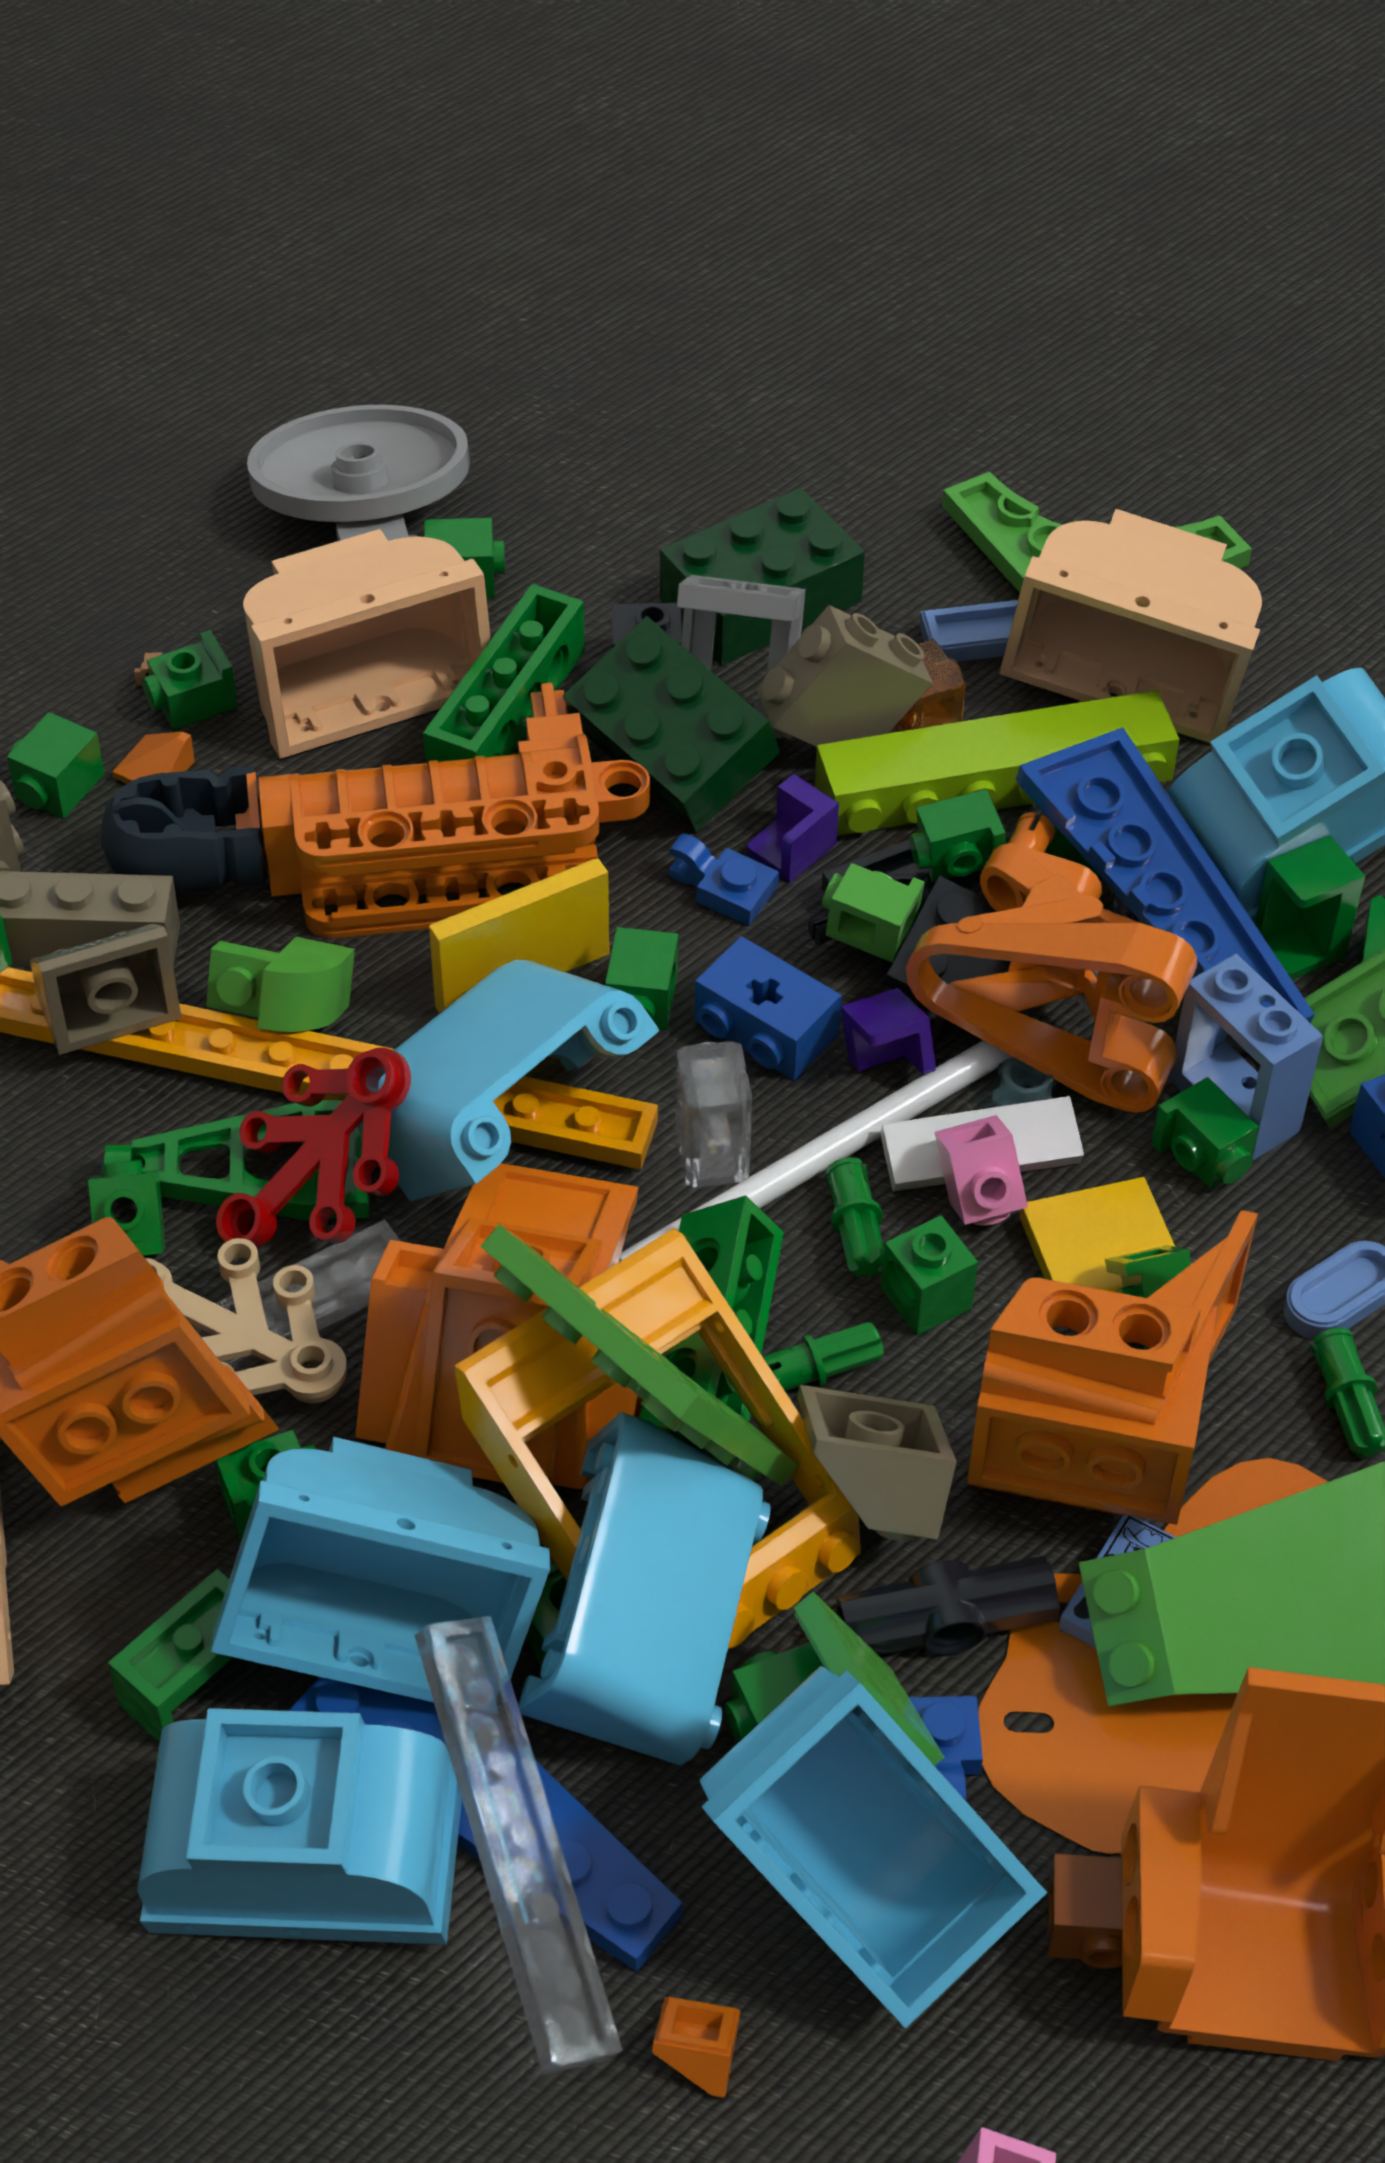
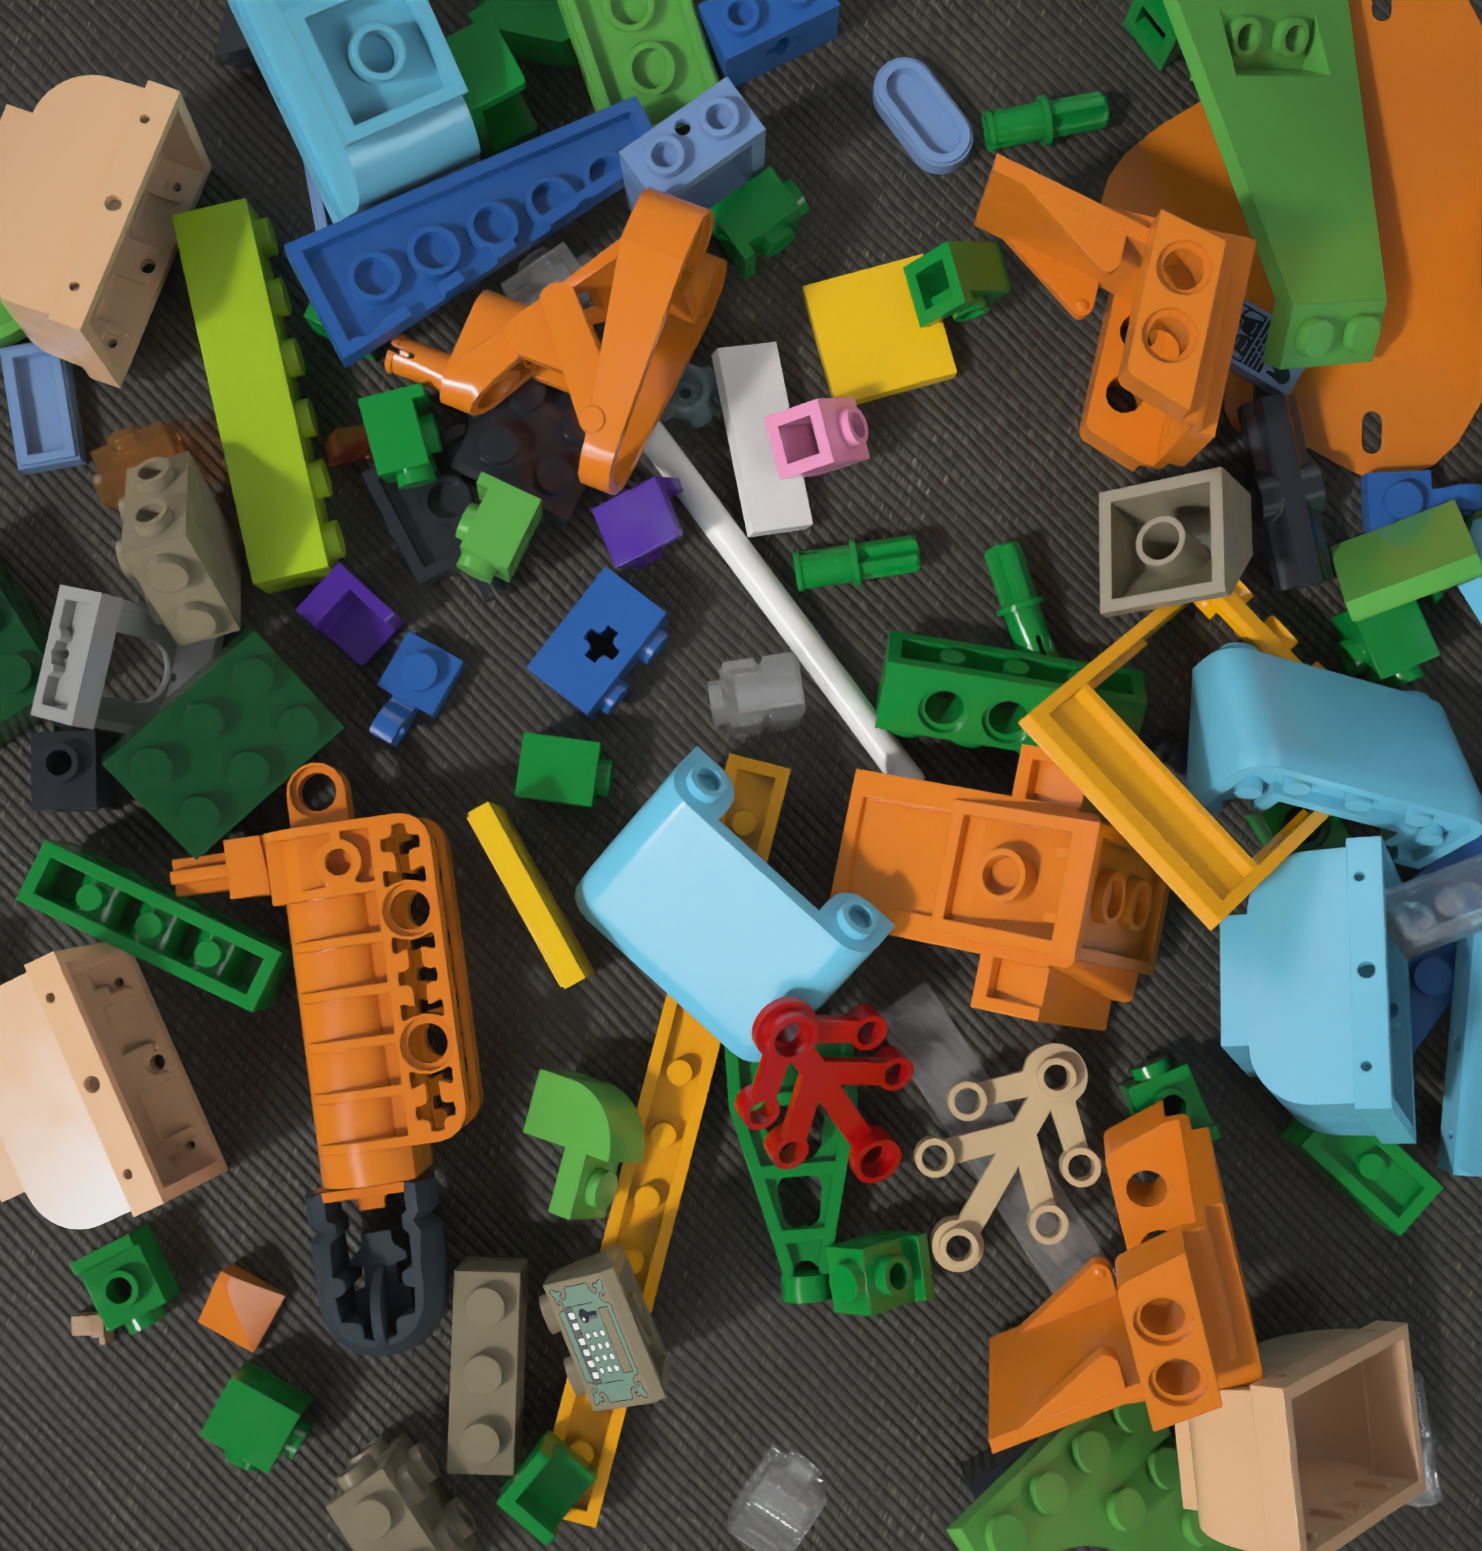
camera: 90 degrees left, 35 degrees up
(635, 1364) = (1219, 735): bright green plate -> none
(929, 1275) = (932, 493): green brick -> none

